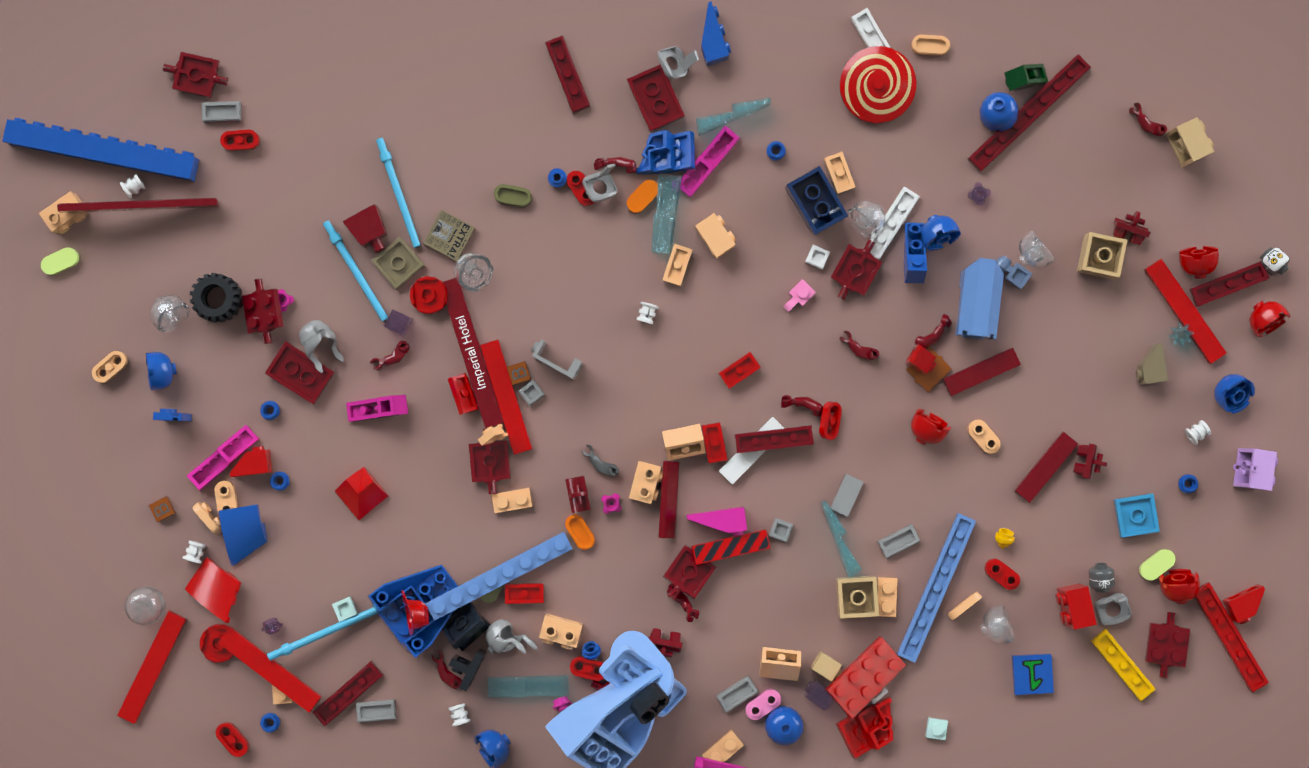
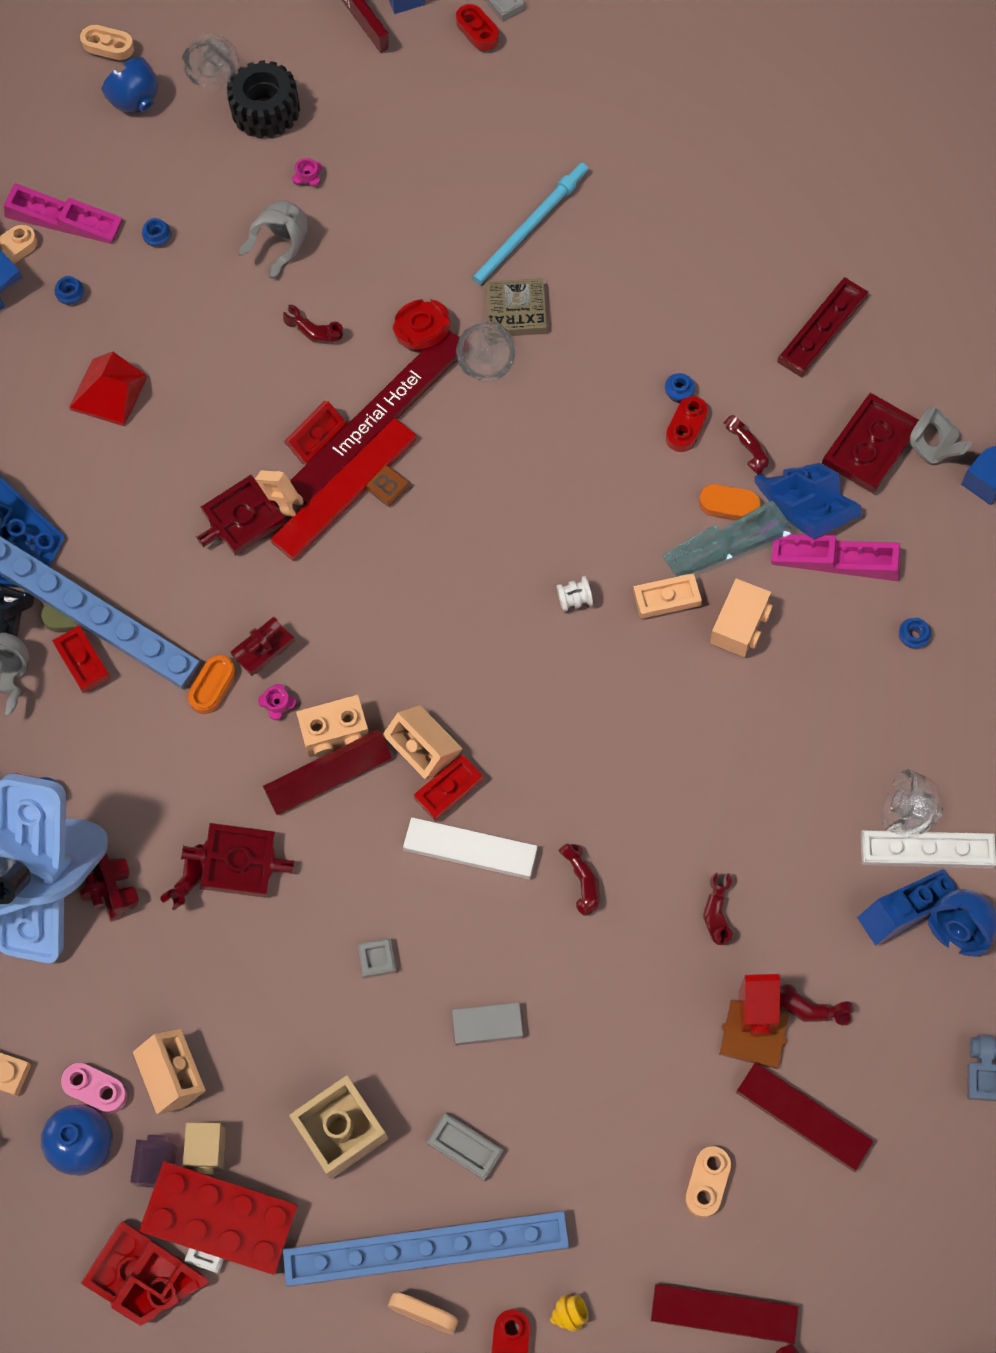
camera: 60 degrees right, 20 degrees down
(171, 415) = (81, 126): blue plate -> none
(253, 462) = (74, 247): red slope -> none
(262, 311) = (278, 156): dark red plate -> none
(299, 373) = (220, 233): dark red plate -> none
(336, 239) = (423, 189): medium azure bar -> none
(368, 228) = (463, 210): dark red torso -> none
(377, 408) = (235, 346): dark pink slope -> none
(398, 263) = (440, 271): dark tan tile -> none
(398, 322) = (361, 307): clear purple brick -> none
(512, 500) = (205, 574): light nougat plate -> none
(513, 195) = (619, 351): olive tile -> none
(531, 392) = (370, 516): light grey tile -> none
(560, 631) = (51, 735): light nougat brick -> none
(574, 369) = (433, 536): light grey panel -> none
(600, 466) = (321, 658): dark grey arm -> none
(605, 177) = (720, 434): light grey piece -> none
(726, 520) = (344, 868): dark pink slope -> none
(730, 547) = (308, 897): tile -> none
(737, 693) = (90, 1040): light grey tile -> none
(739, 110) = (933, 553): clear light blue slope -> none
(739, 370) = (574, 761): red plate -> none
(774, 439) = (505, 863): dark red plate -> none
(800, 294) = (739, 782): bright pink plate -> none
(816, 201) = (886, 717): dark blue brick -> none
(817, 257) = (807, 775): white tile -> none
(830, 420) = (583, 932): red plate -> none
(837, 530) = (424, 1039): clear light blue slope -> none
(839, 173) = (946, 733): light nougat plate -> none
(856, 269) = (827, 837): dark red plate -> none
(887, 596) = (366, 1180): light nougat plate -> none
(929, 428) = (665, 1082): red cylinder -> none
(979, 300) = (909, 1038): medium blue brick -> none

